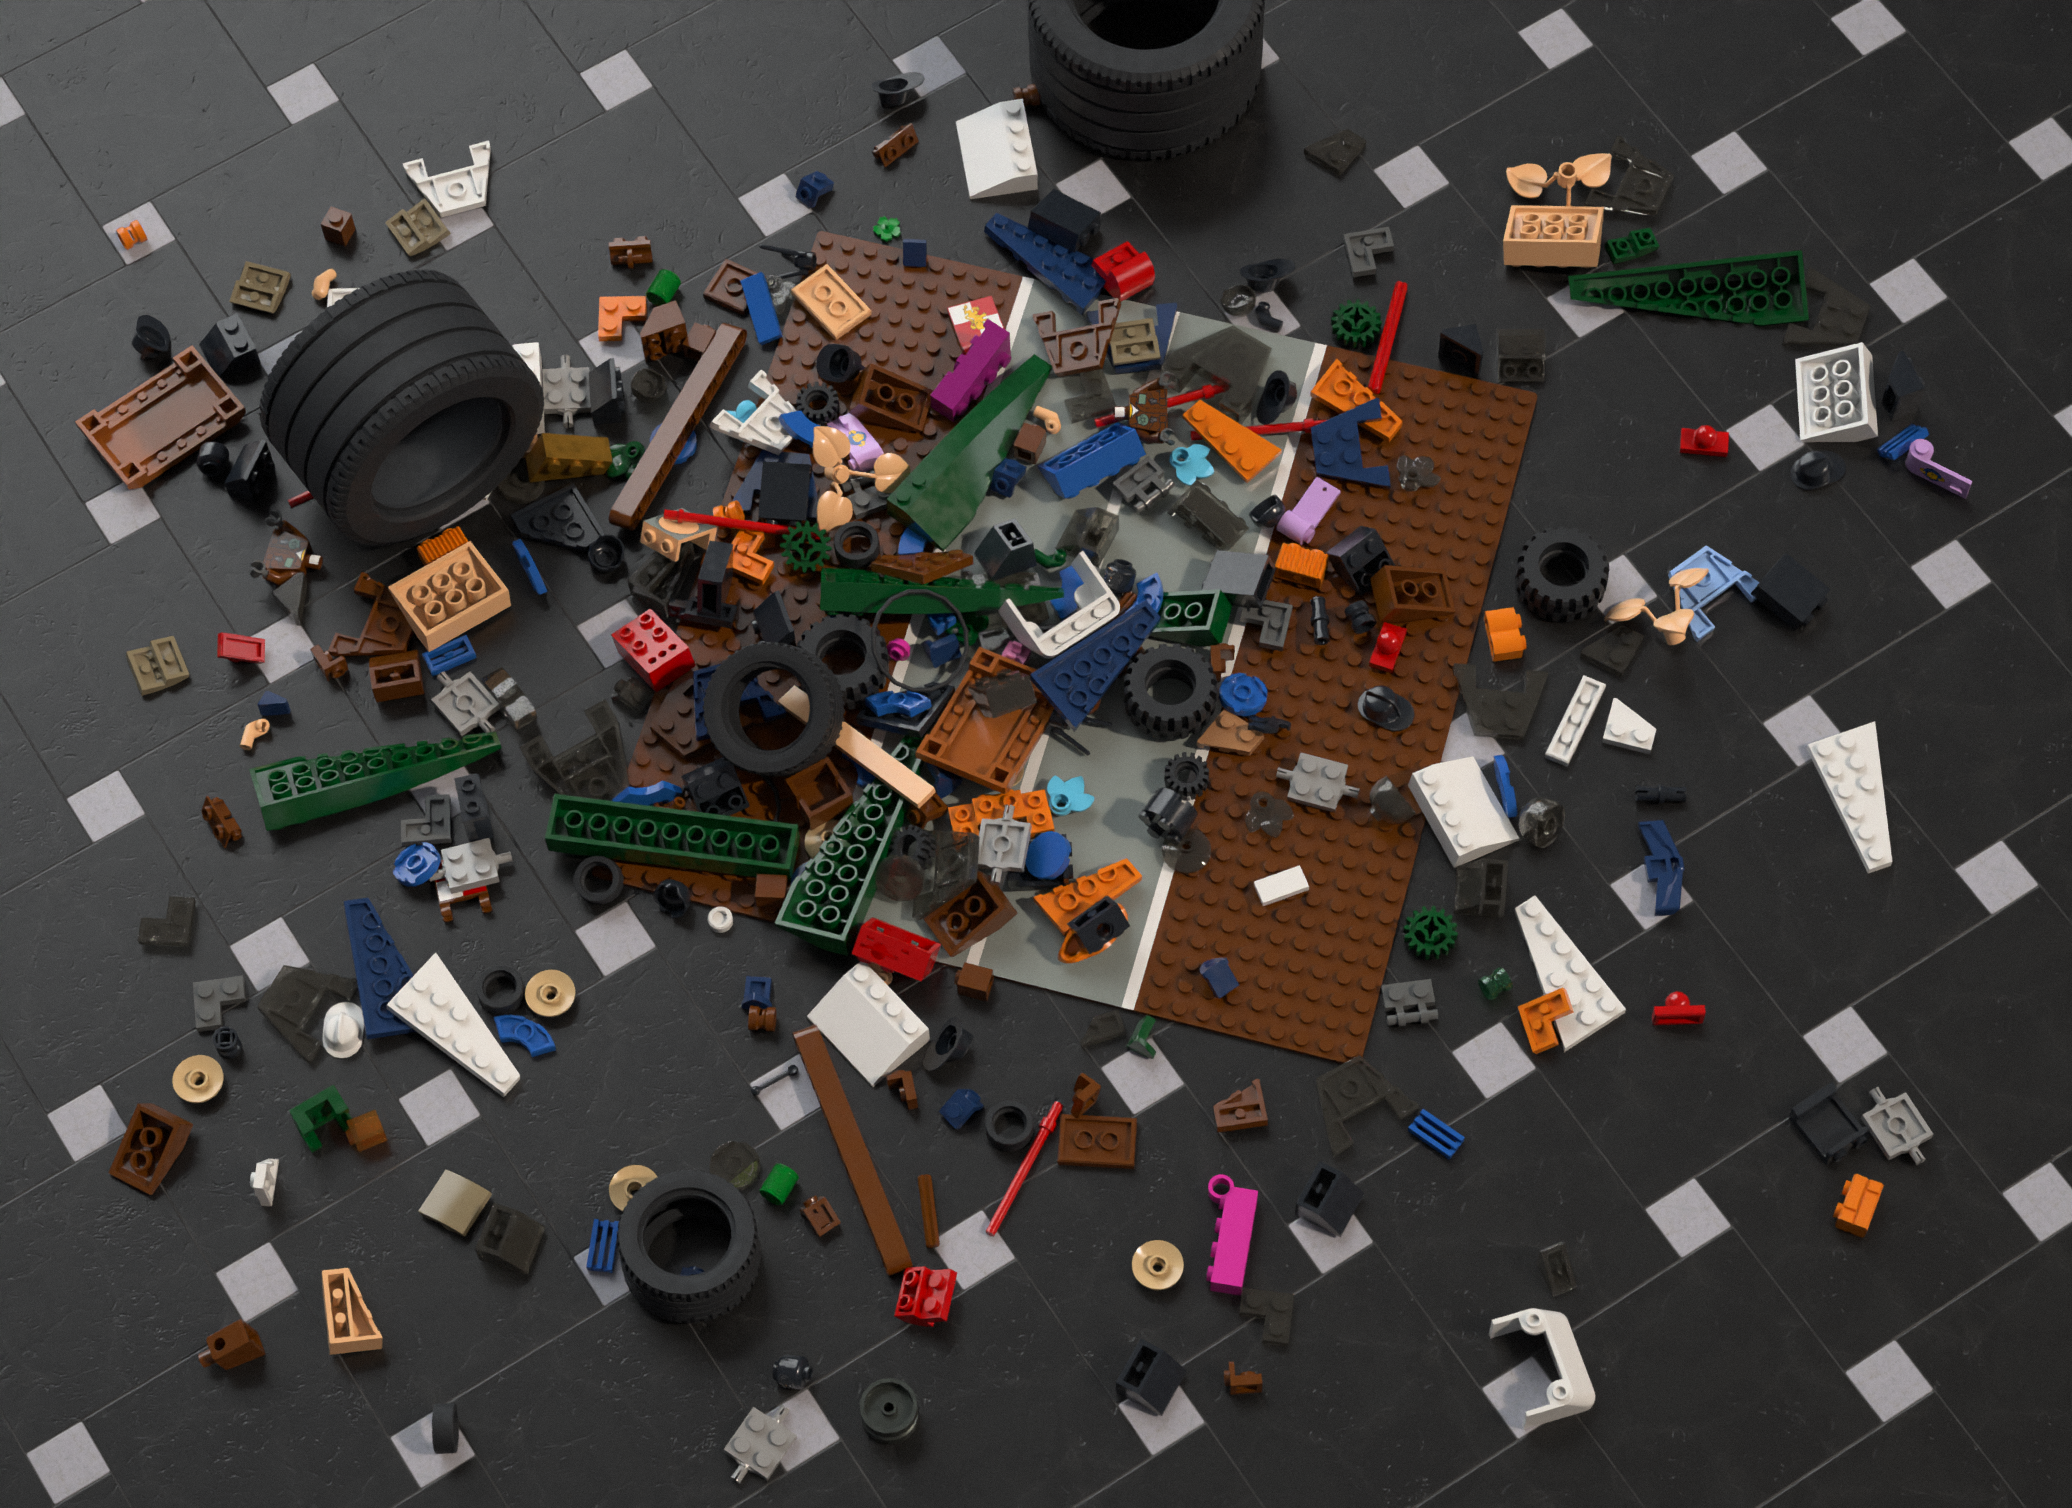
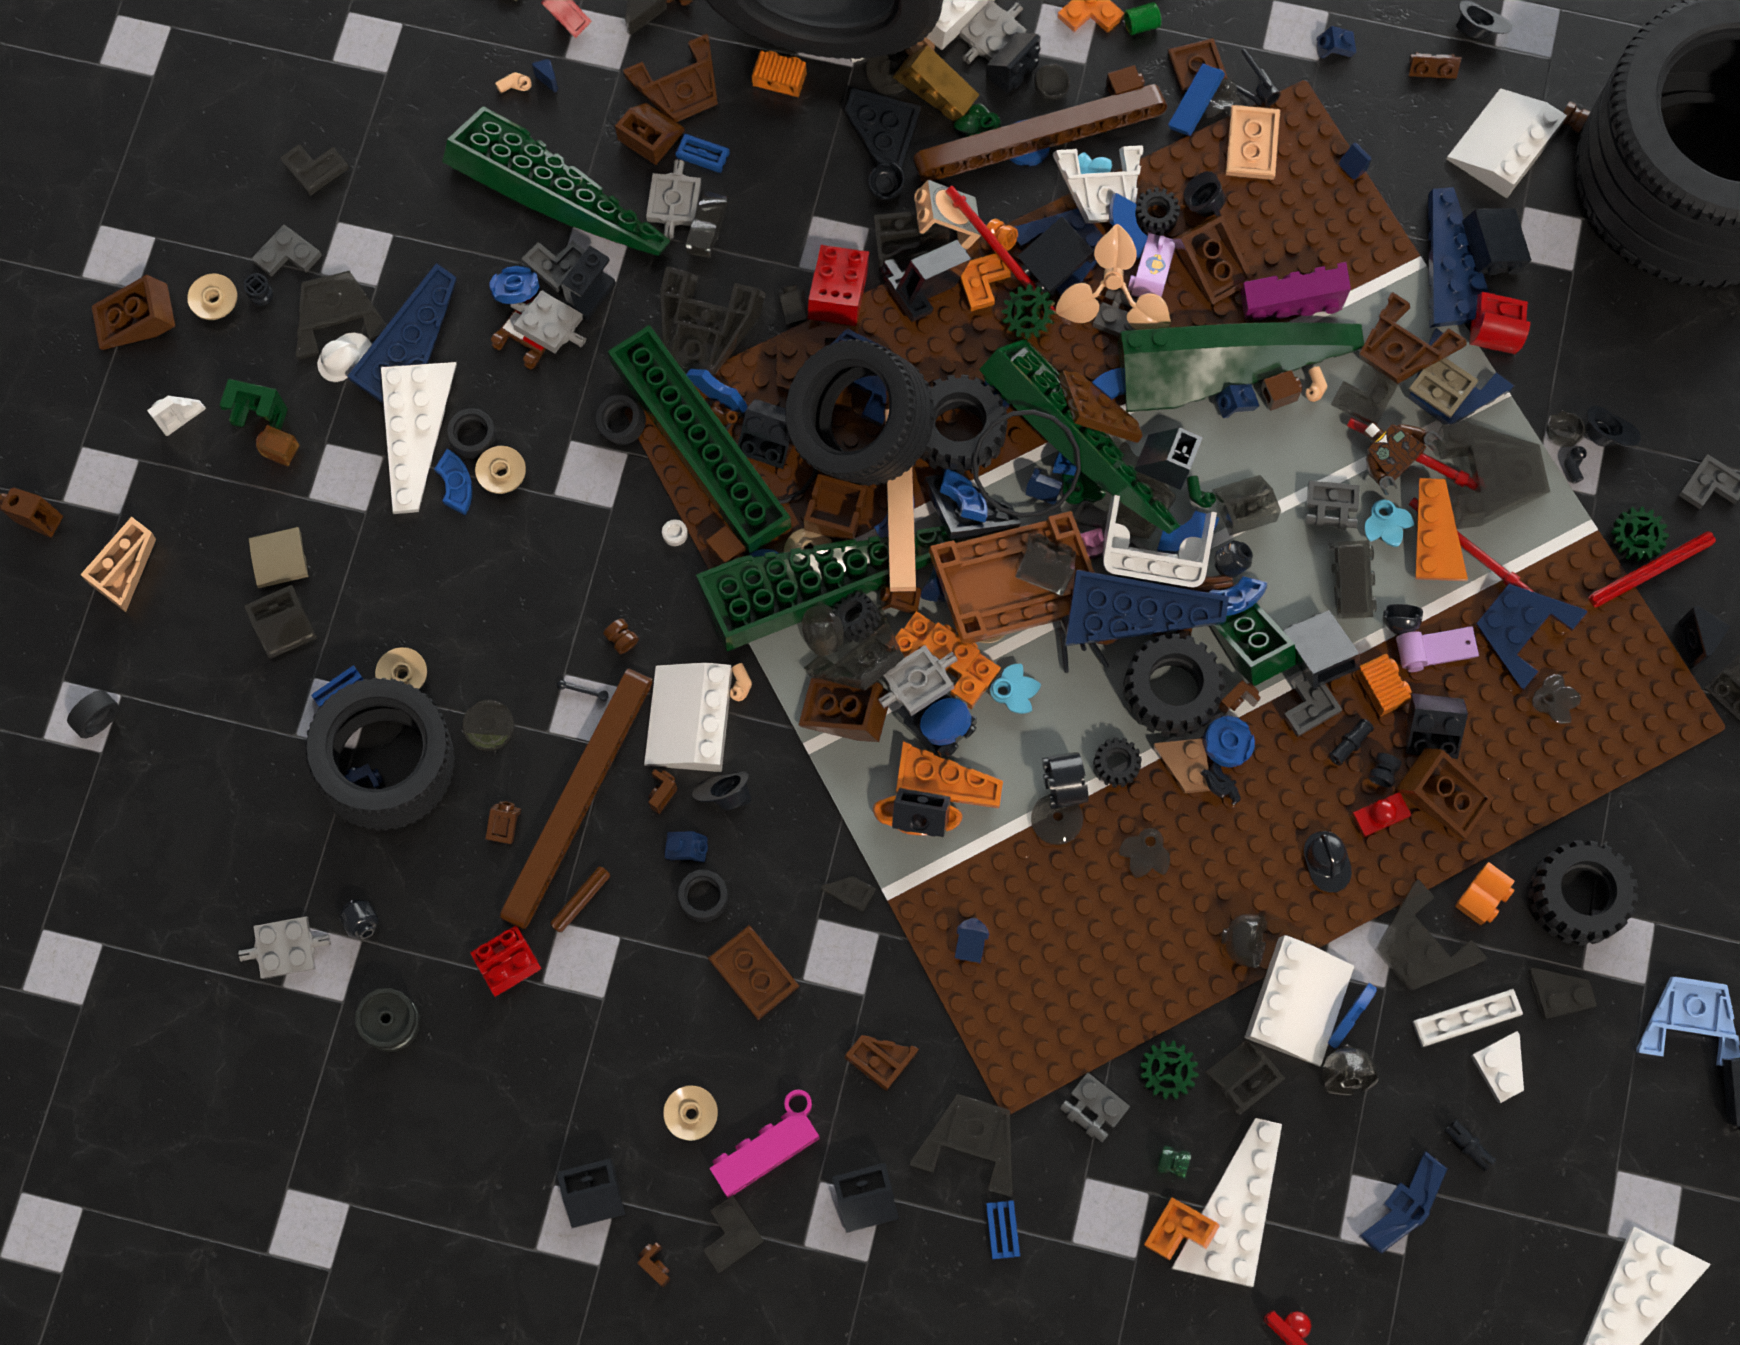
camera: 45 degrees right, 10 degrees up
(215, 813) = (428, 116): reddish brown hinge -> none
(328, 666) = (612, 79): reddish brown bracket -> none
(450, 596) = (743, 108): light nougat slope -> none
(529, 566) = (820, 144): blue tile -> none
(663, 332) = (1102, 50): reddish brown slope -> none
(673, 897) = (657, 482): black hair -> none
(757, 992) = (640, 614): dark blue tile -> none
(773, 622) = (940, 351): black slope -> none
(779, 1184) = (499, 771): green piece -> none
(851, 529) = (1071, 328): black tyre -> none
(887, 229) = (1358, 124): green plant -> none
(895, 949) = (761, 681): red piece -> none
(898, 649) = (1012, 455): dark pink plate -> none
(970, 317) = (1346, 248): flag -> none
(974, 981) = (796, 761): reddish brown brick -> none
(1046, 1127) = (729, 923): red bar -> none
(1085, 1094) = (779, 931): reddish brown bracket -> none
(1092, 460) = (1314, 448): blue slope -> none
(1138, 1039) = (867, 926): dark green tile -> none
(1276, 398) = (1509, 535): black piece -> none
(1281, 885) = (1095, 918): white tile -> none
(1317, 782) = (1211, 866): light grey plate -> none
(1343, 392) = (1567, 580): orange wing -> none
(1673, 624) = (1624, 1023): light nougat plant -> none

